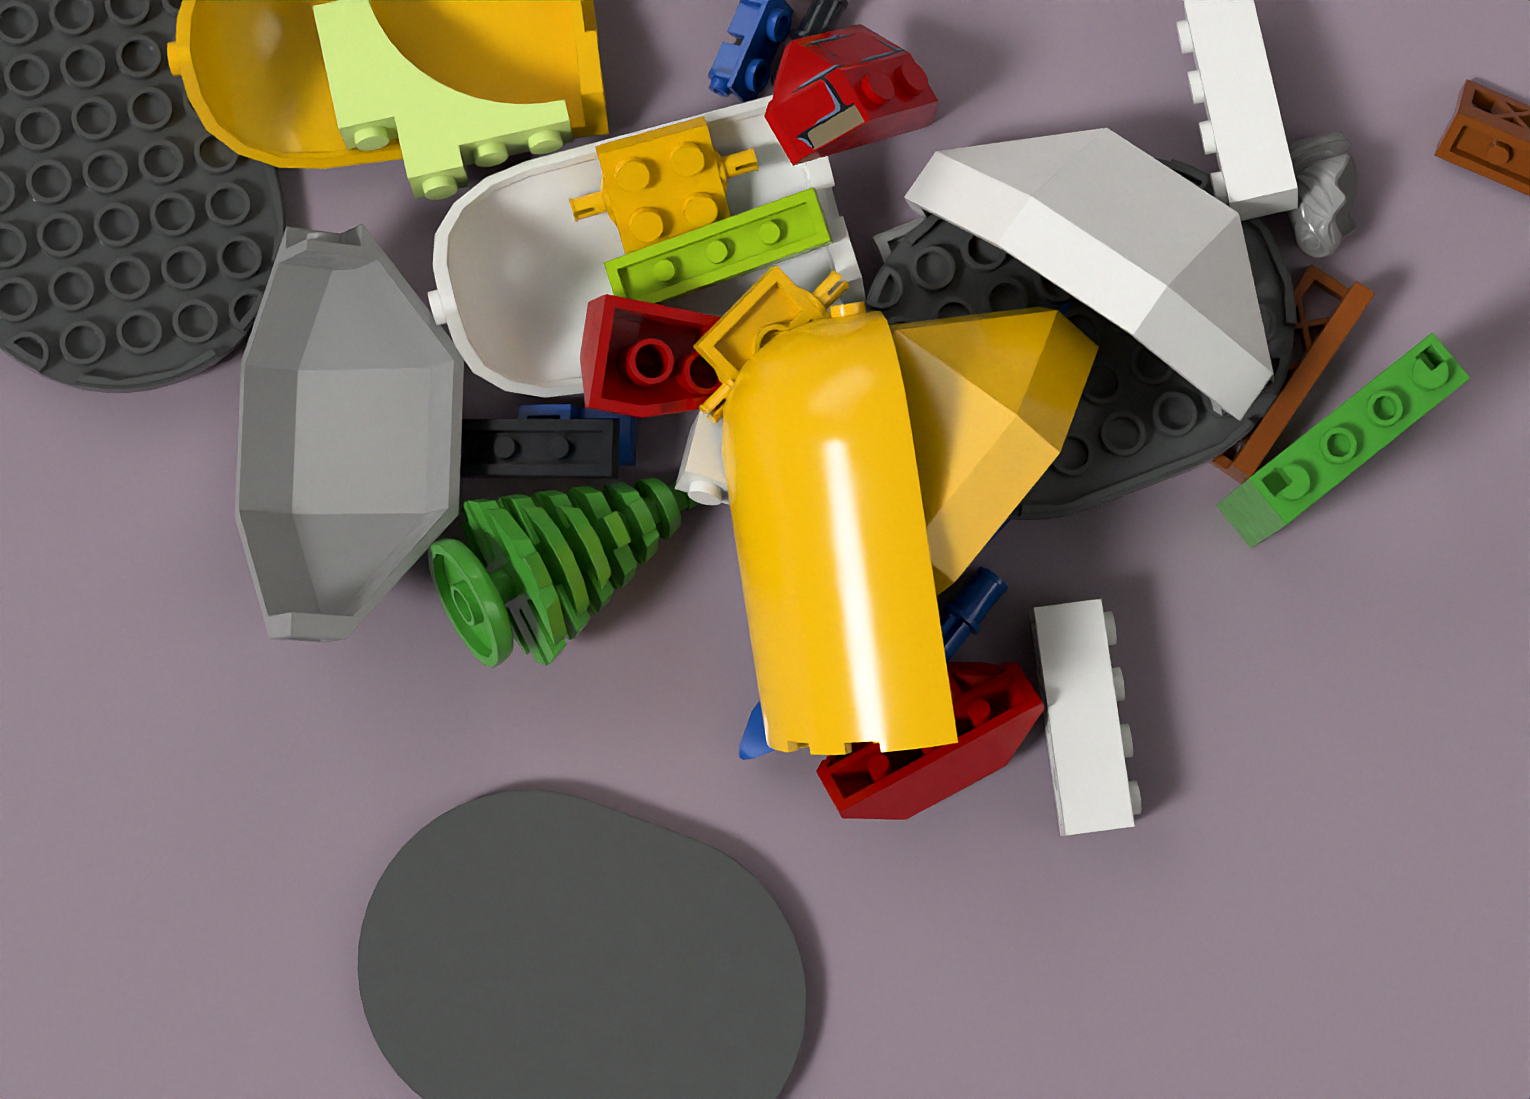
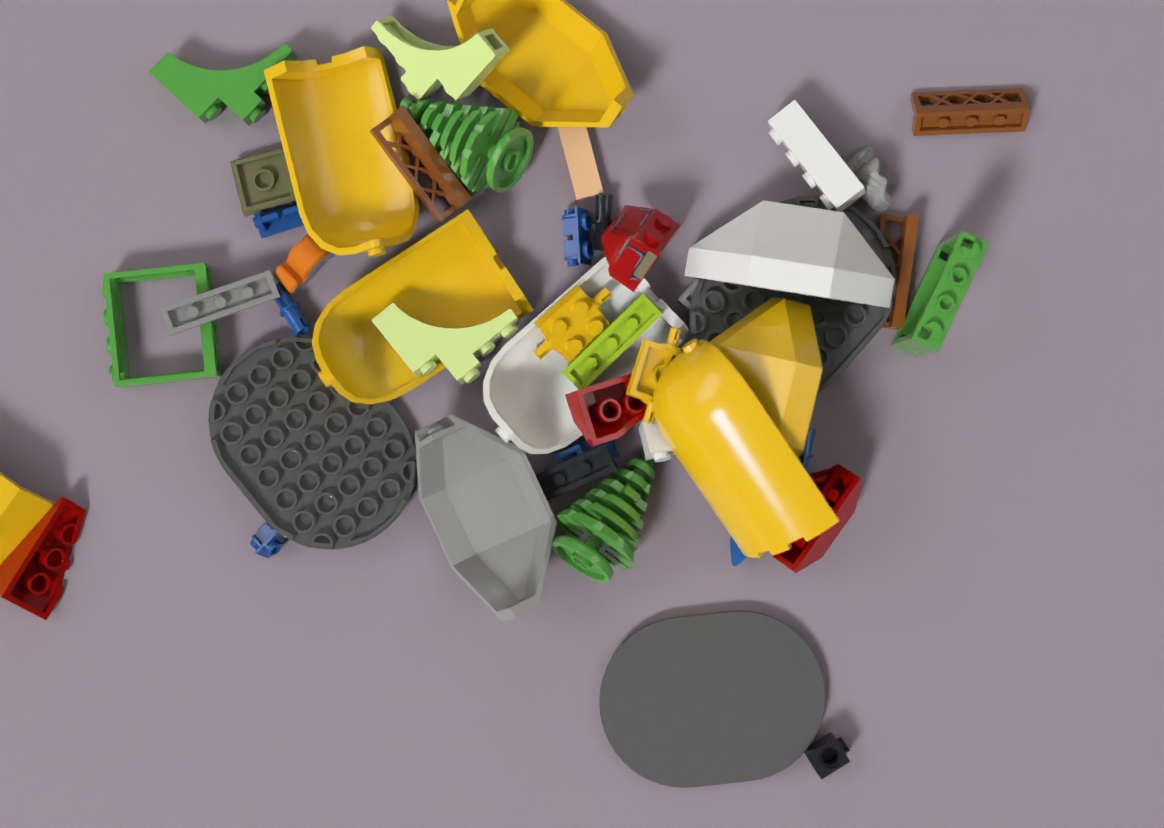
camera: 30 degrees left, 5 degrees up
(1082, 717) = (879, 473): white brick -> none

